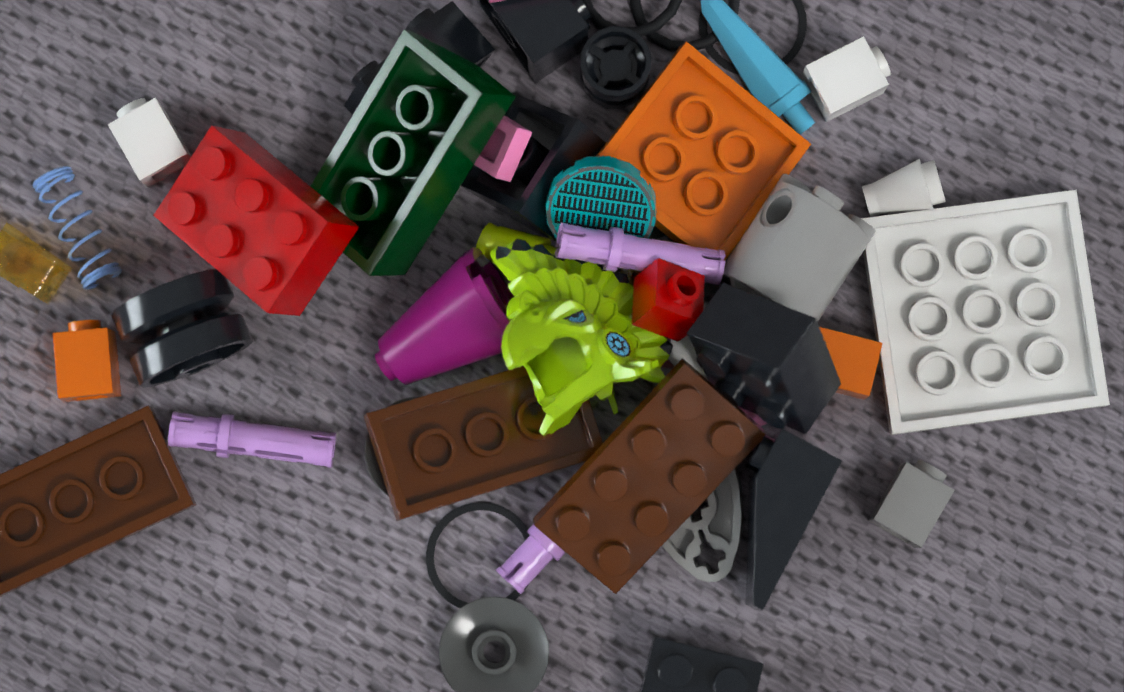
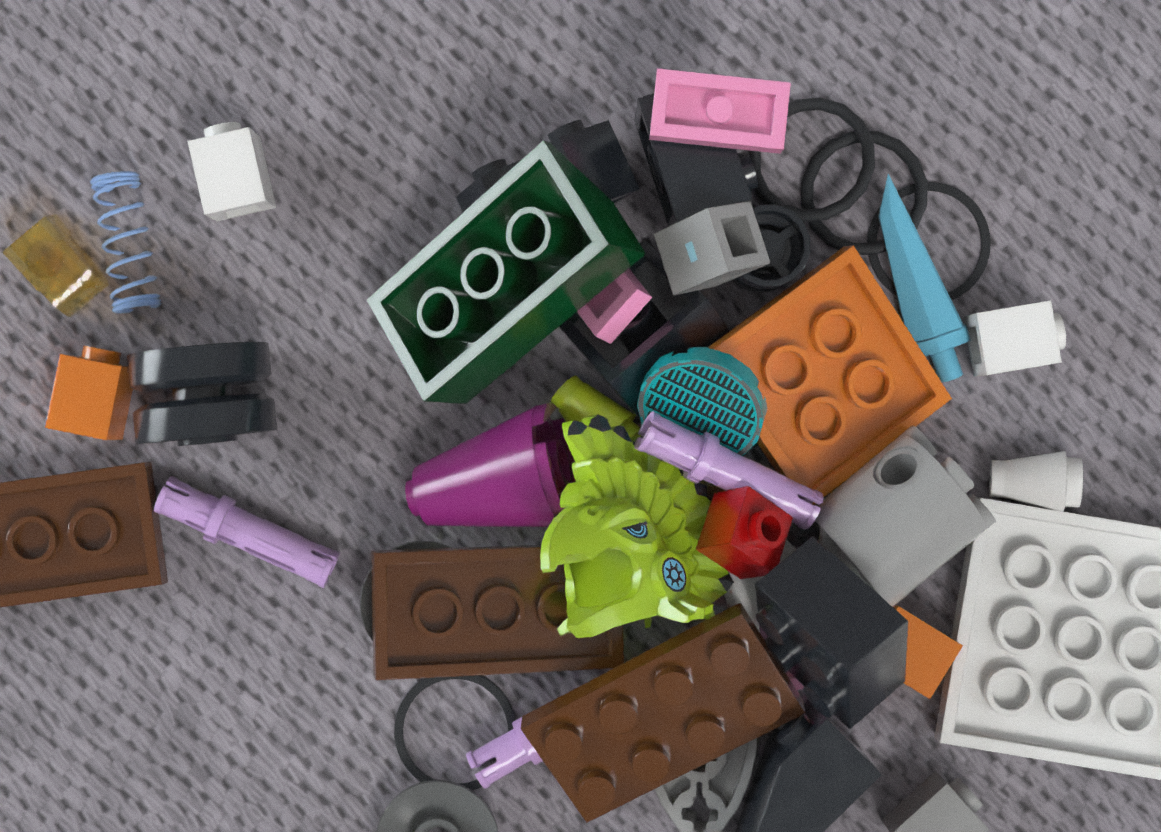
camera: 15 degrees right, 5 degrees up
(255, 221) = (316, 301): red brick -> none
(568, 75) = (711, 247): none -> light grey brick

